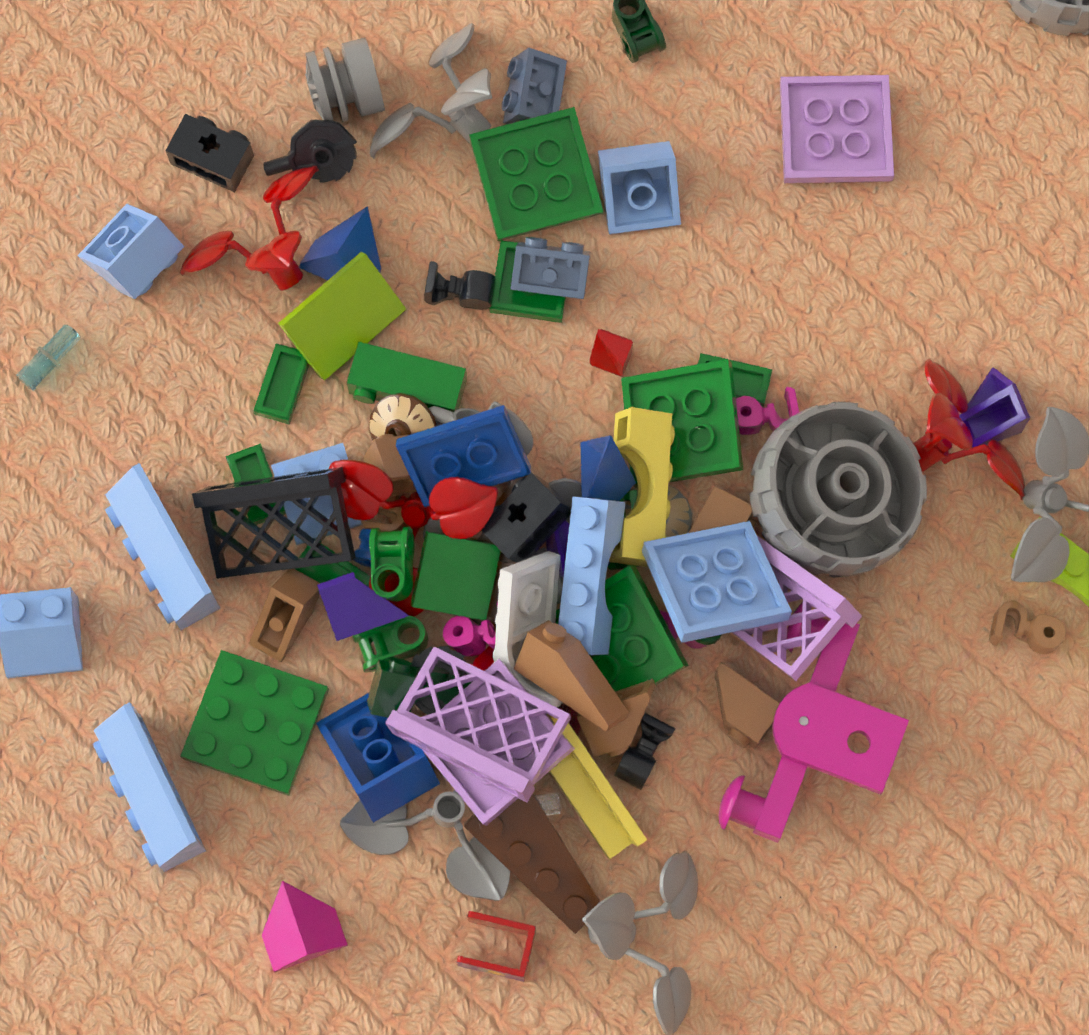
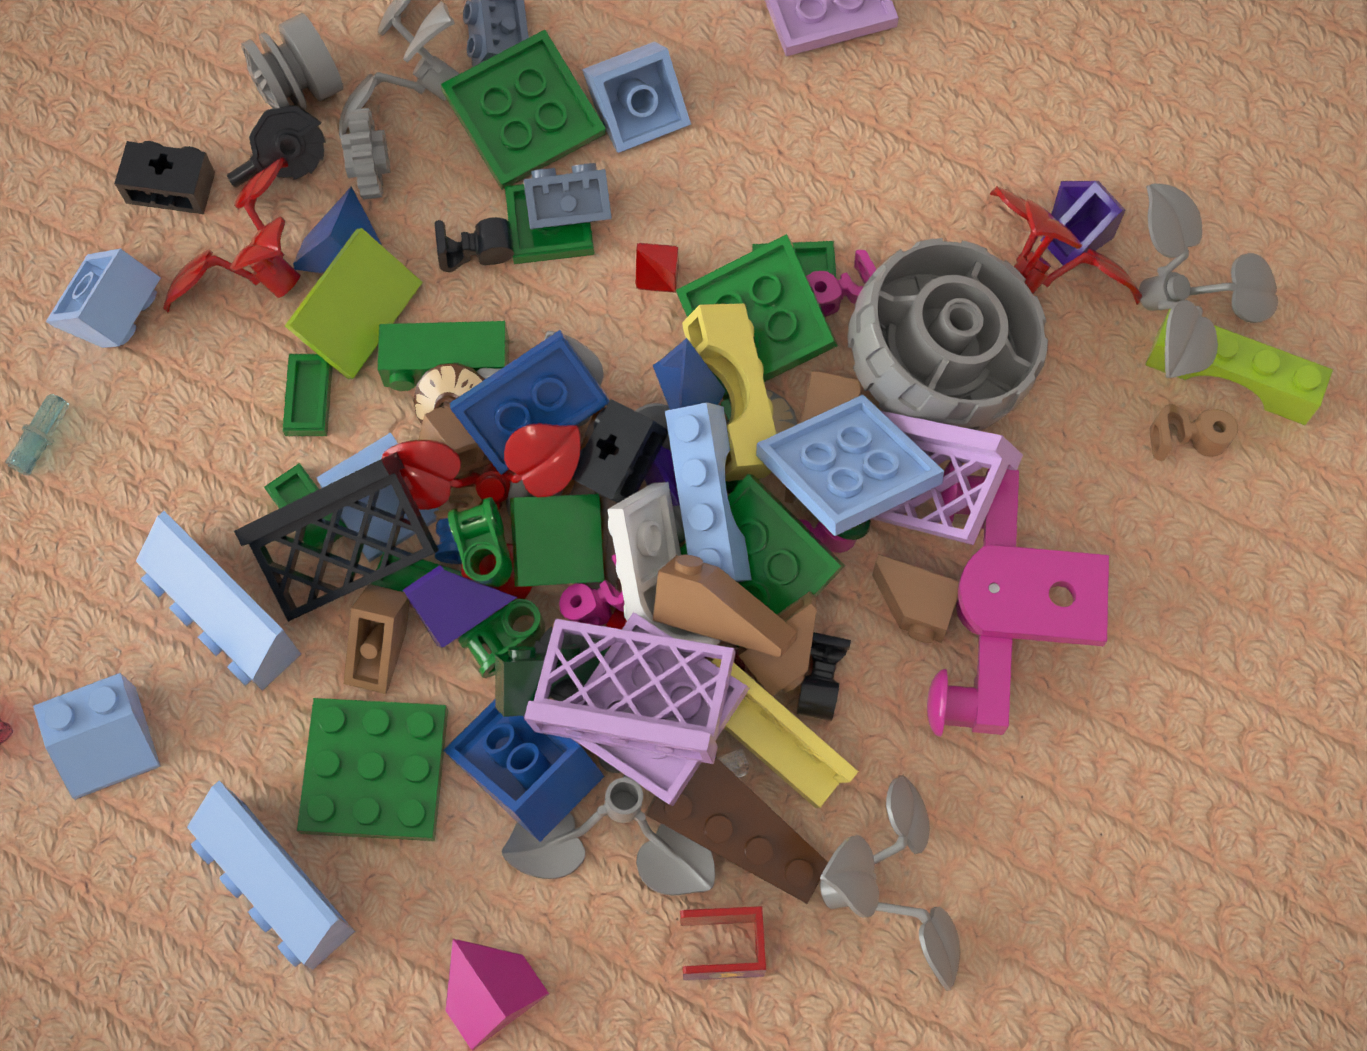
camera: 15 degrees left, 5 degrees down
(387, 182) = (365, 153): none -> light grey gear

